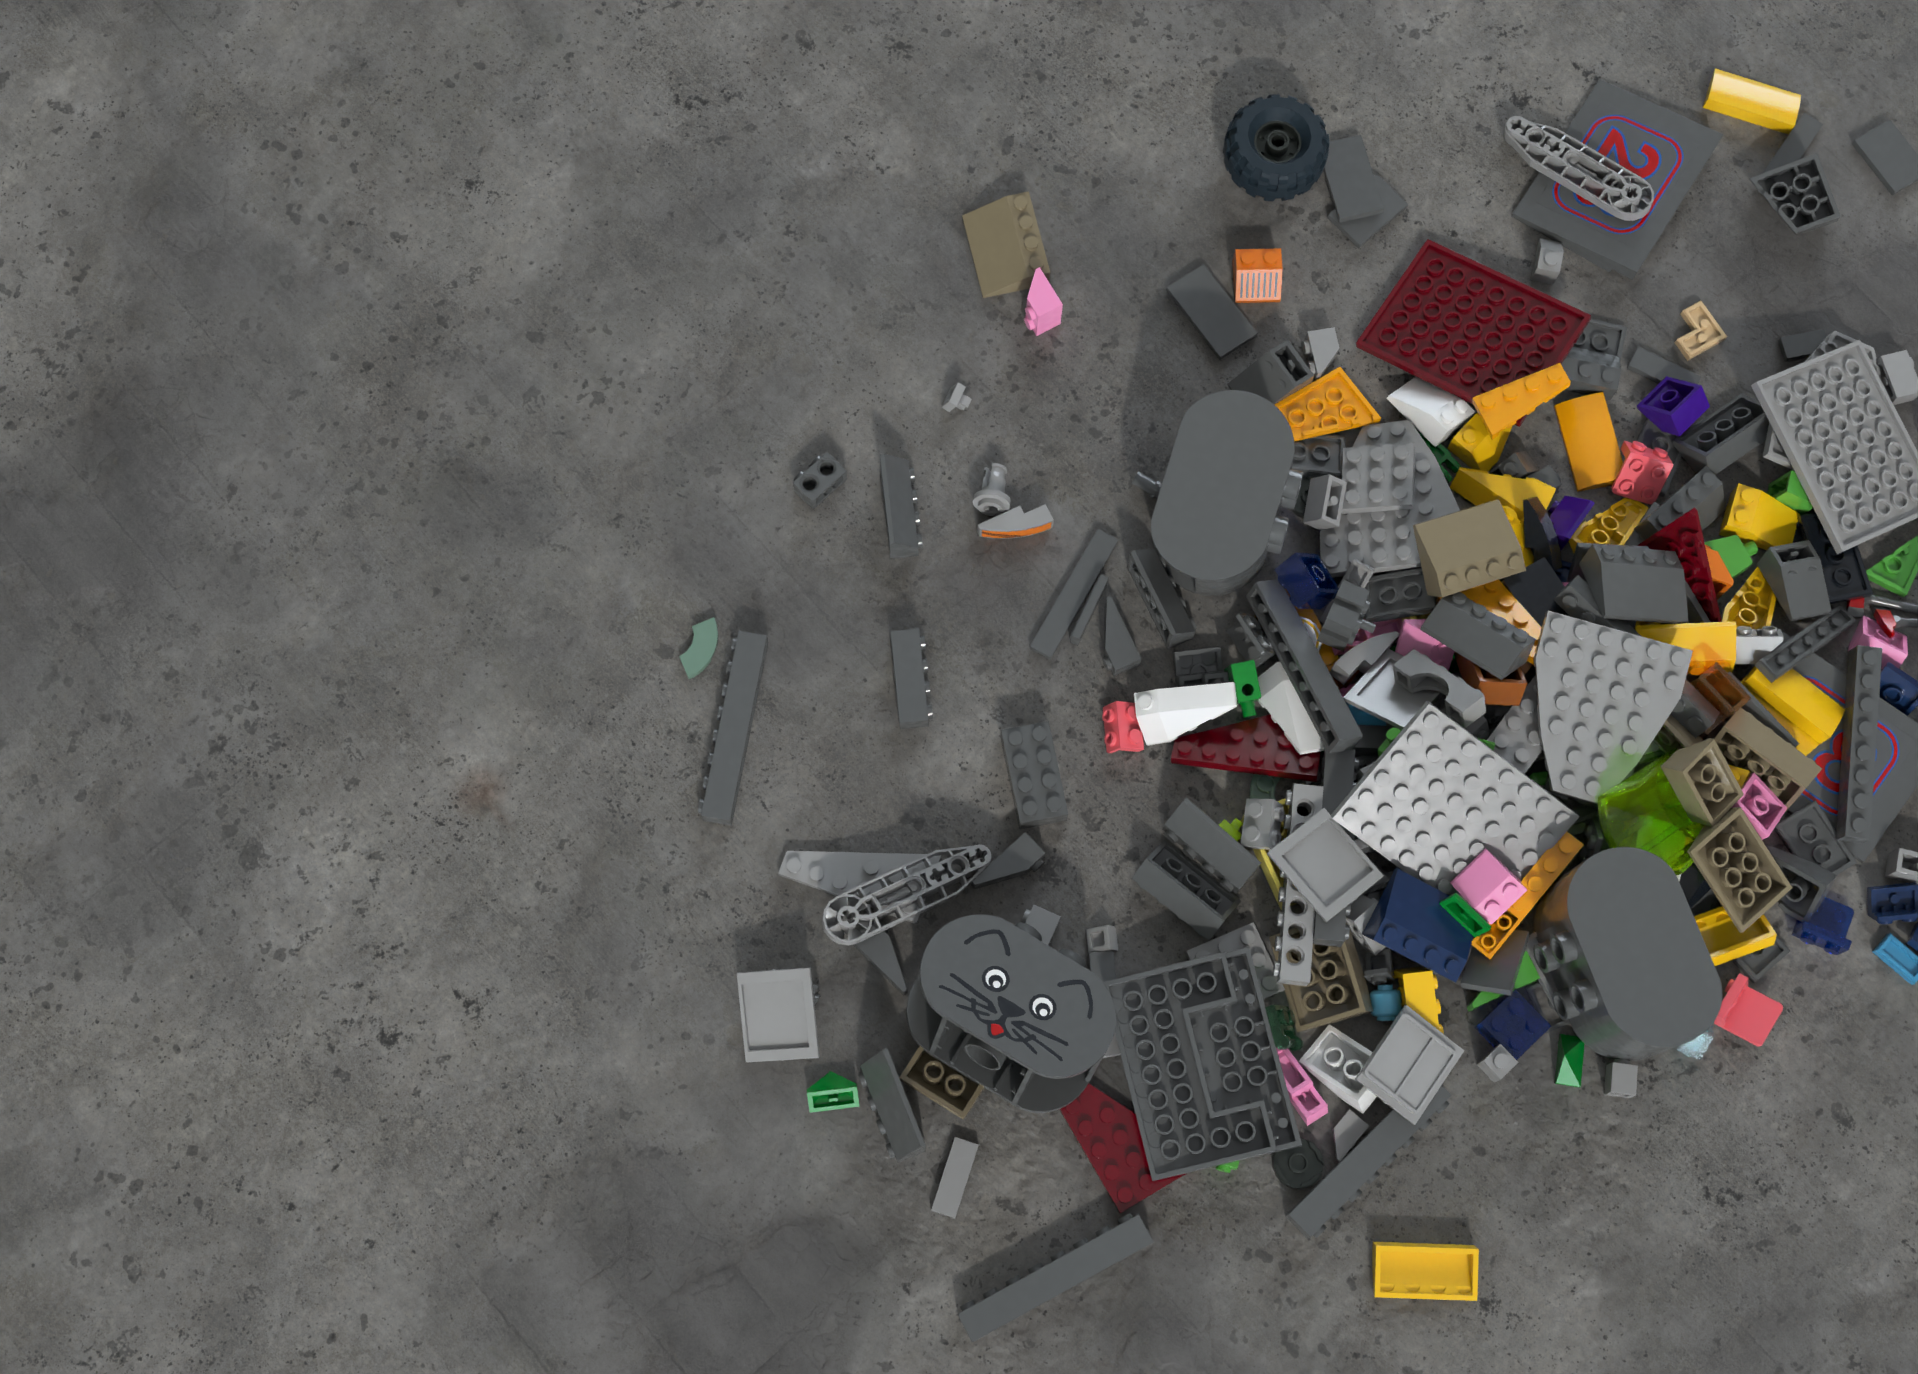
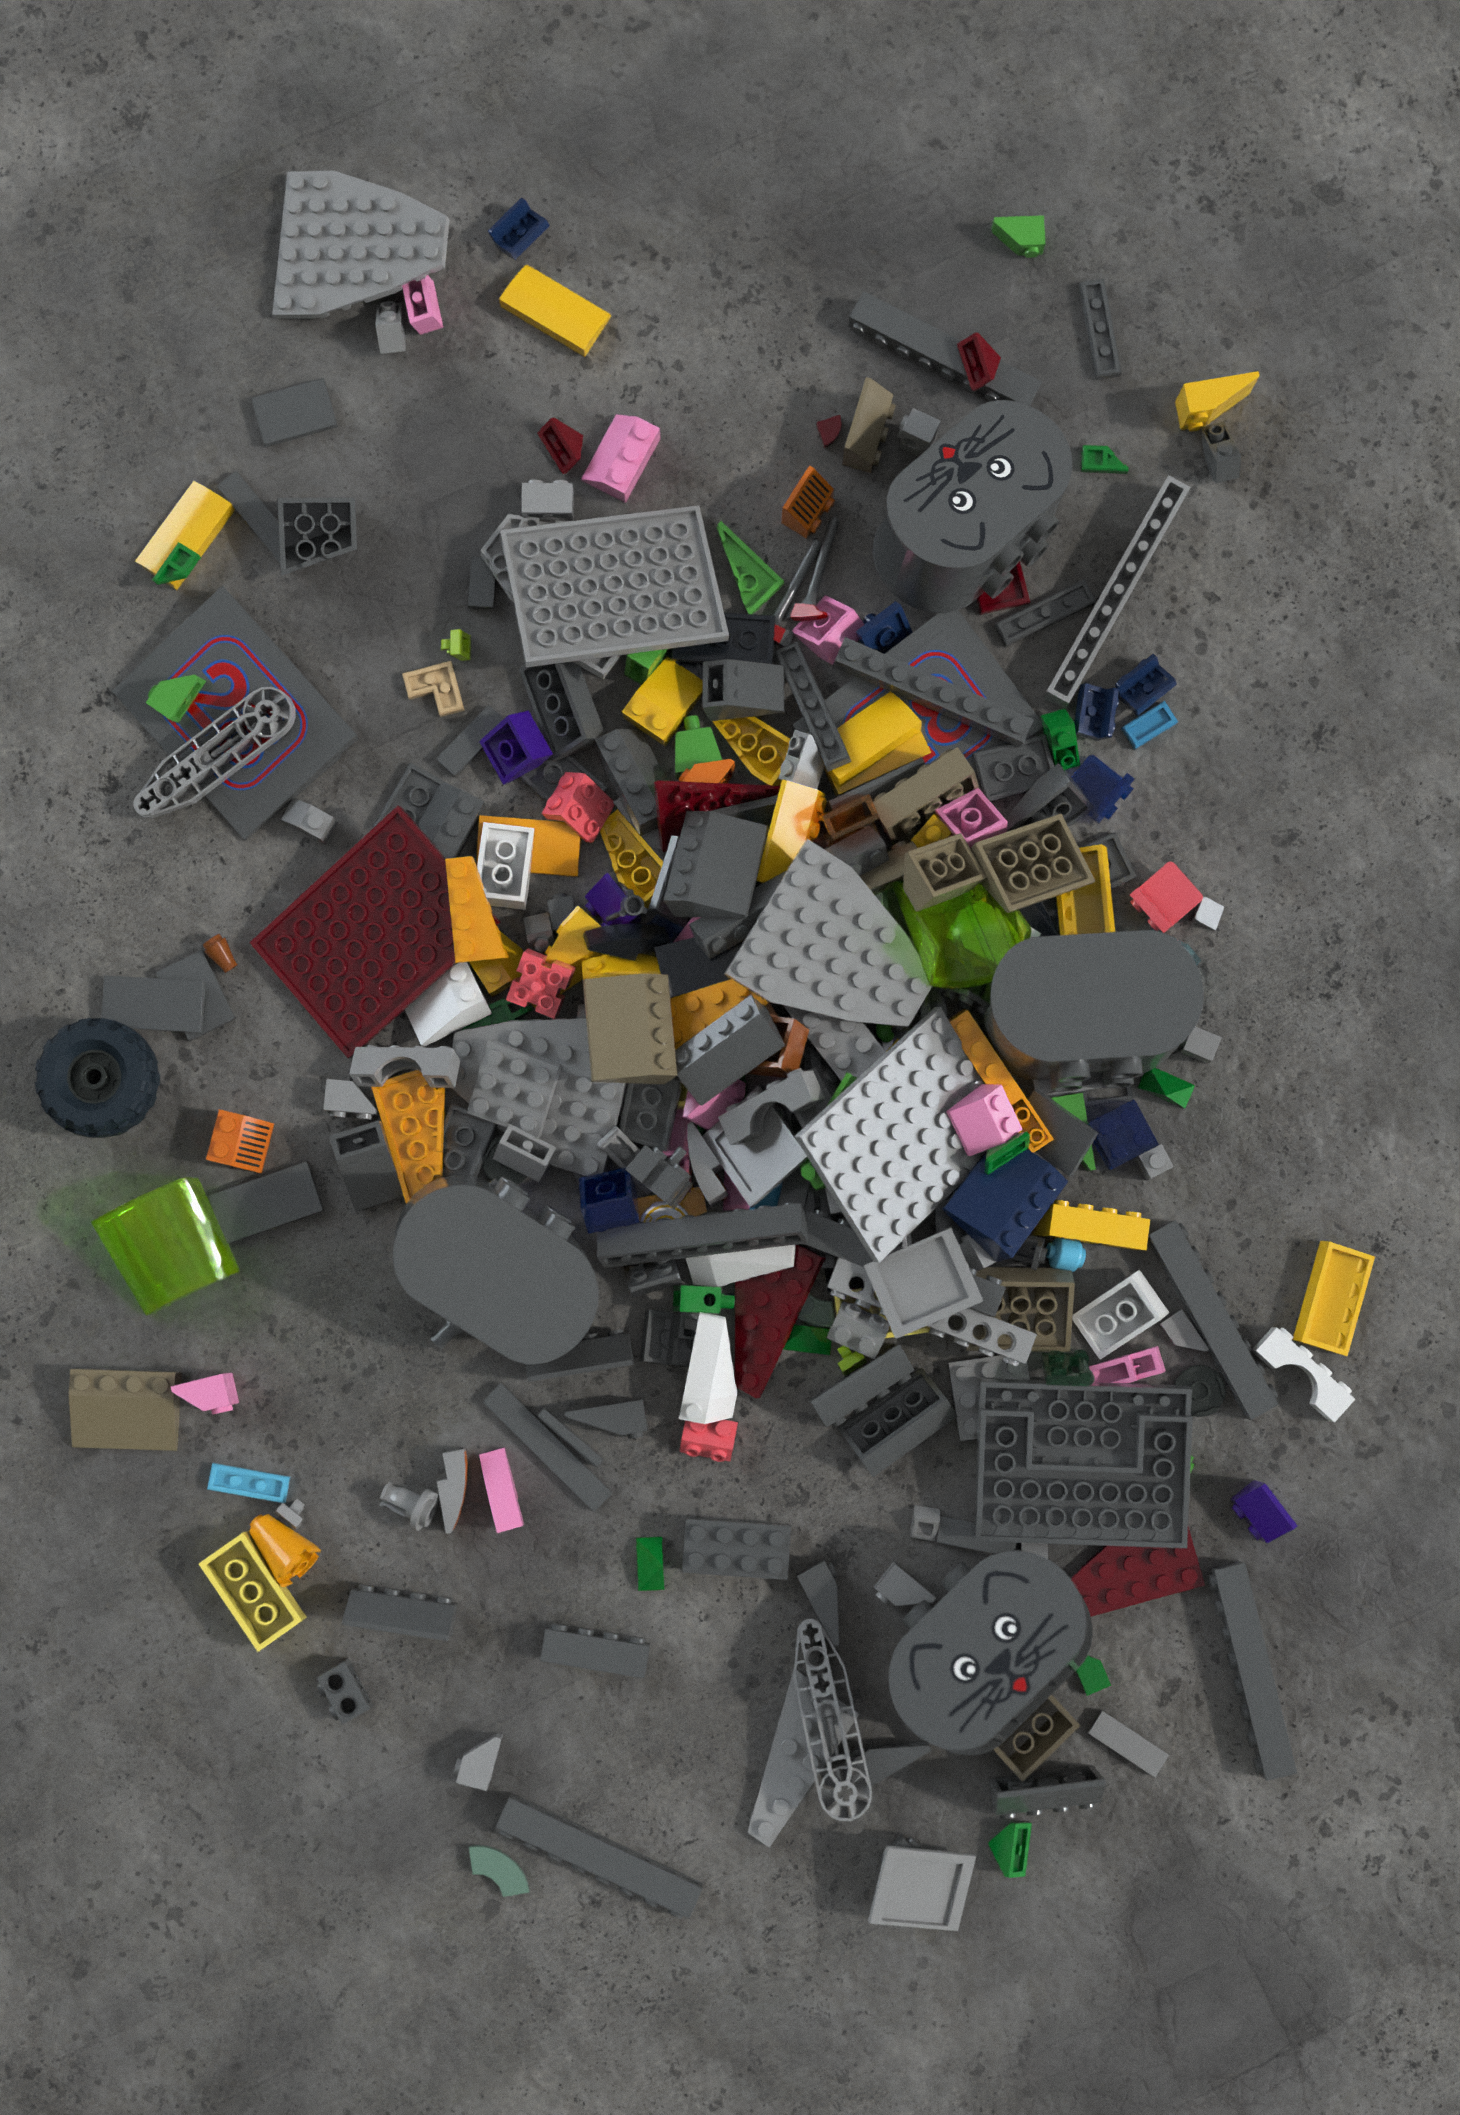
camera: 75 degrees left, 10 degrees up
(788, 606) = (478, 1764): none -> light grey slope
(885, 383) = (251, 1591): none -> light yellow brick
(925, 400) = (282, 1549): none -> light orange cone
(972, 360) = (248, 1482): none -> medium azure tile
(997, 707) = (650, 1563): none -> green slope
(1009, 1126) = (1092, 1675): none -> green tile
(1025, 564) = (501, 1490): none -> bright pink slope
(1156, 238) = (167, 1243): none -> clear neon green windscreen
(1205, 1247) = (1262, 1512): none -> dark purple slope
(1235, 791) = (809, 1340): none -> green slope
(1359, 364) = (375, 1064): none -> light grey arch
(1359, 1227) = (1327, 1396): none -> white arch
(1409, 1064) = (1138, 1255): light grey piece -> none
(1410, 219) = (220, 952): none -> dark orange cone
(1477, 474) = (541, 983): none -> coral brick
(1566, 424) = (505, 864): none -> white slope
(1573, 527) = (630, 905): none -> dark grey plant
(1616, 124) = (175, 696): none -> bright green slope
(1726, 97) = (177, 565): none -> green tile
(1743, 338) = (458, 645): none -> lime tile
(1745, 1057) = (1208, 913): none -> slope
(1857, 878) = (1061, 738): none -> green slope

